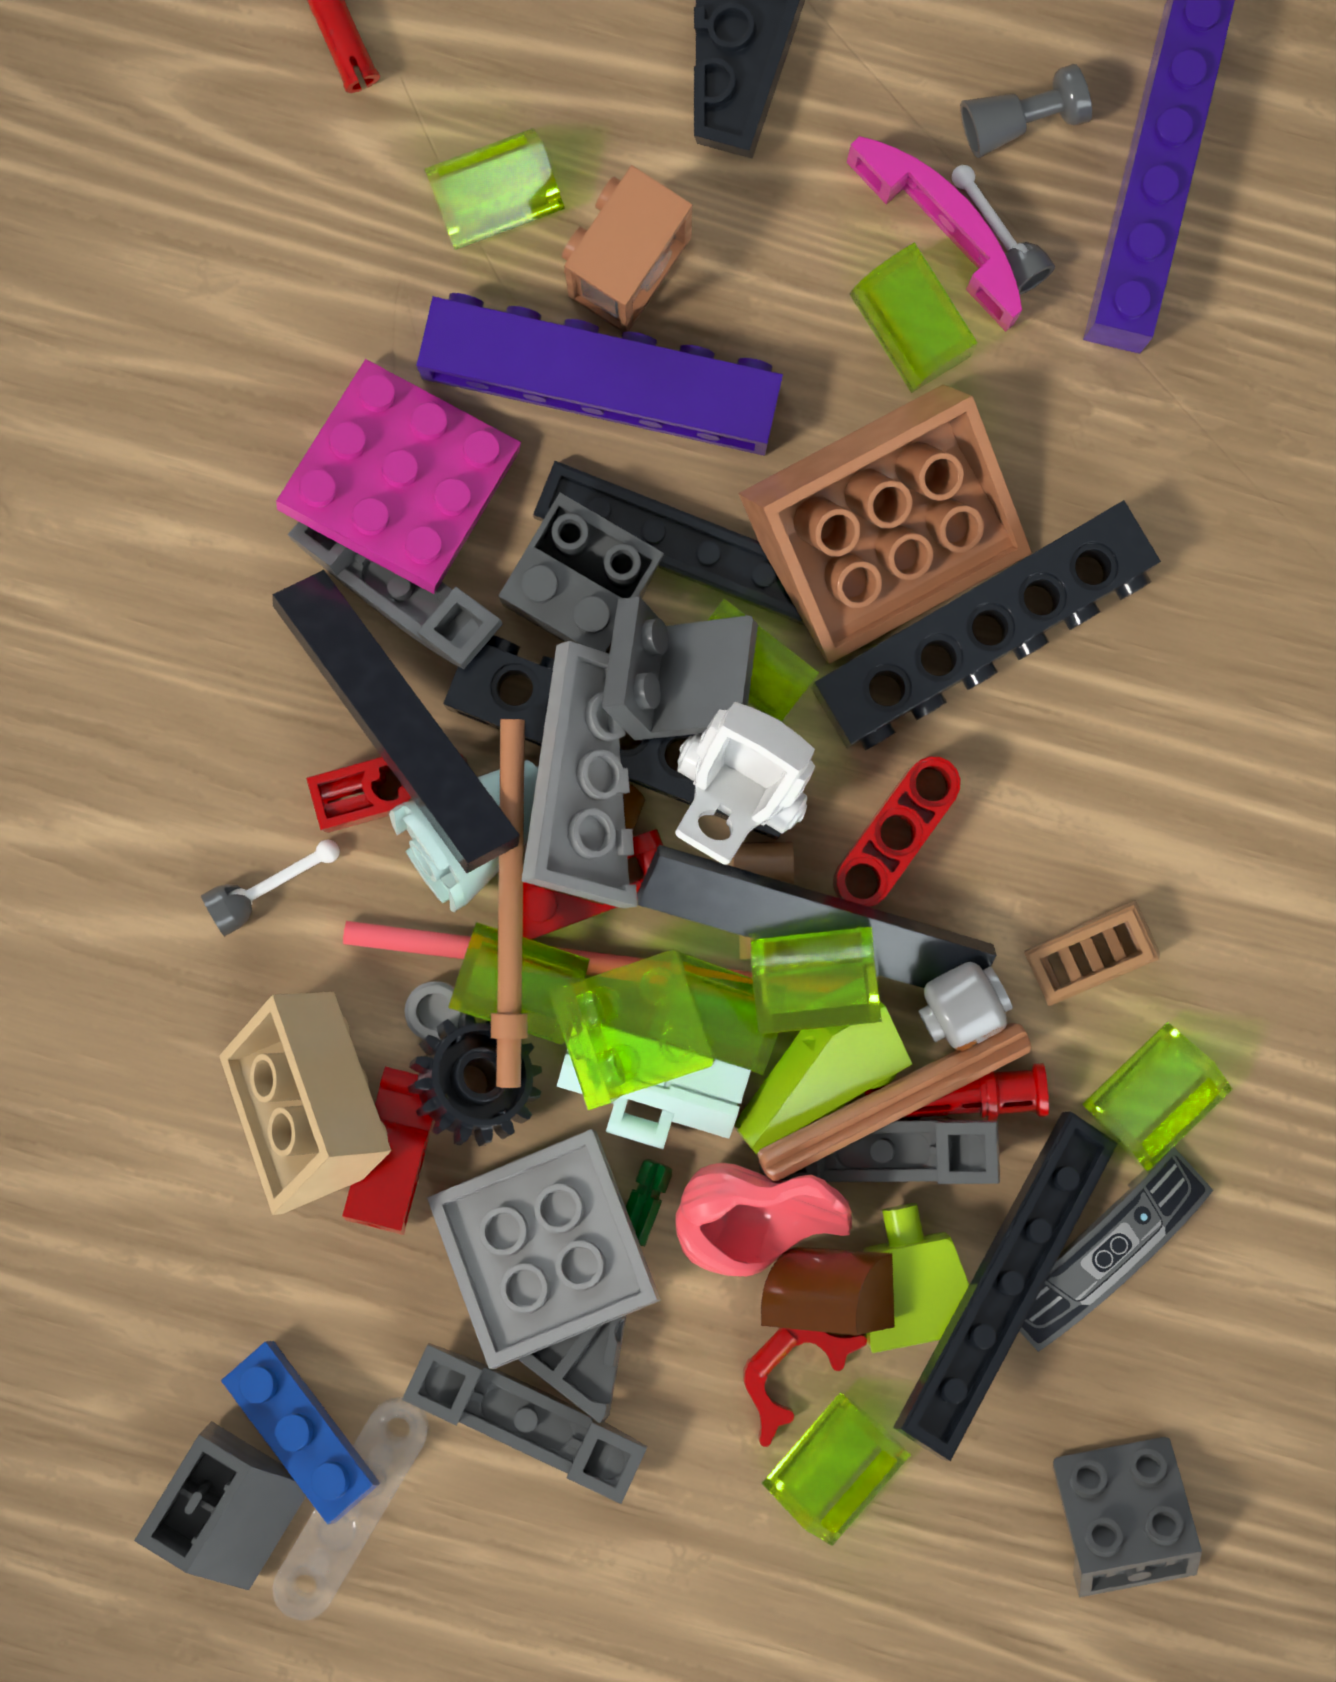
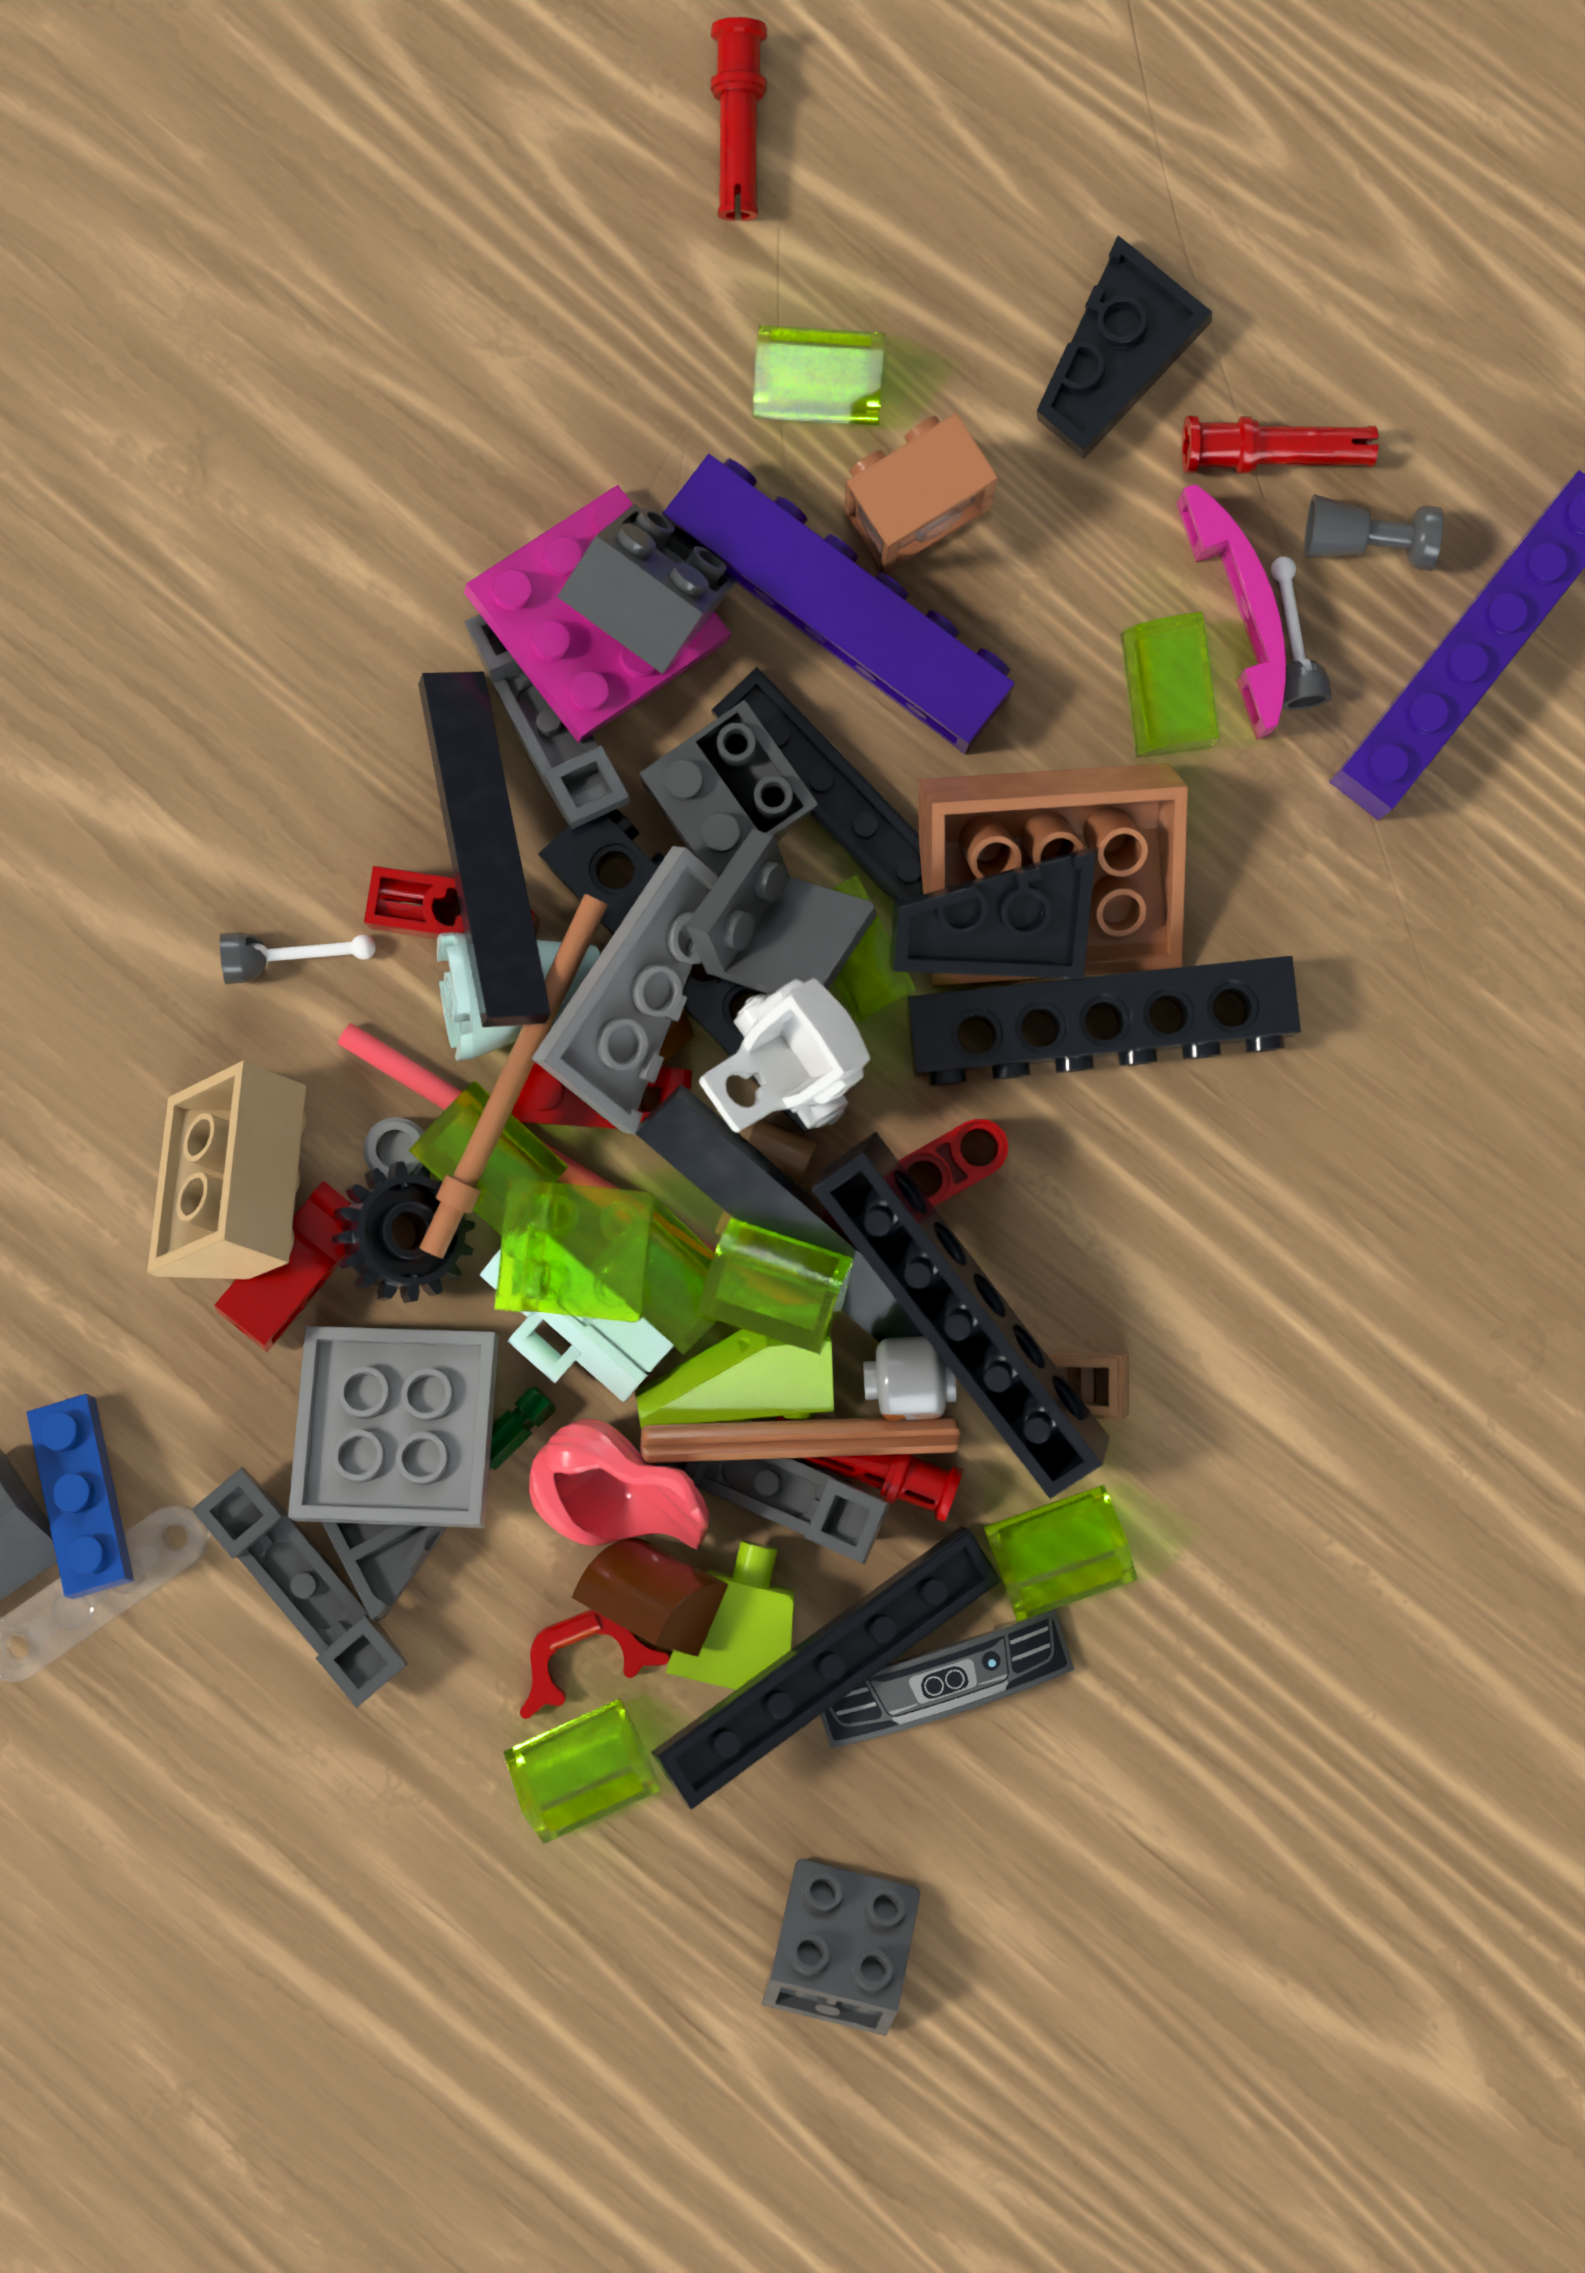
camera: 30 degrees right, 0 degrees up
(433, 432) = (647, 586): none -> dark grey slope
(867, 584) = (1001, 924): none -> black wing
(887, 83) = (1248, 444): none -> red pin
(987, 932) = (962, 1315): none -> black brick

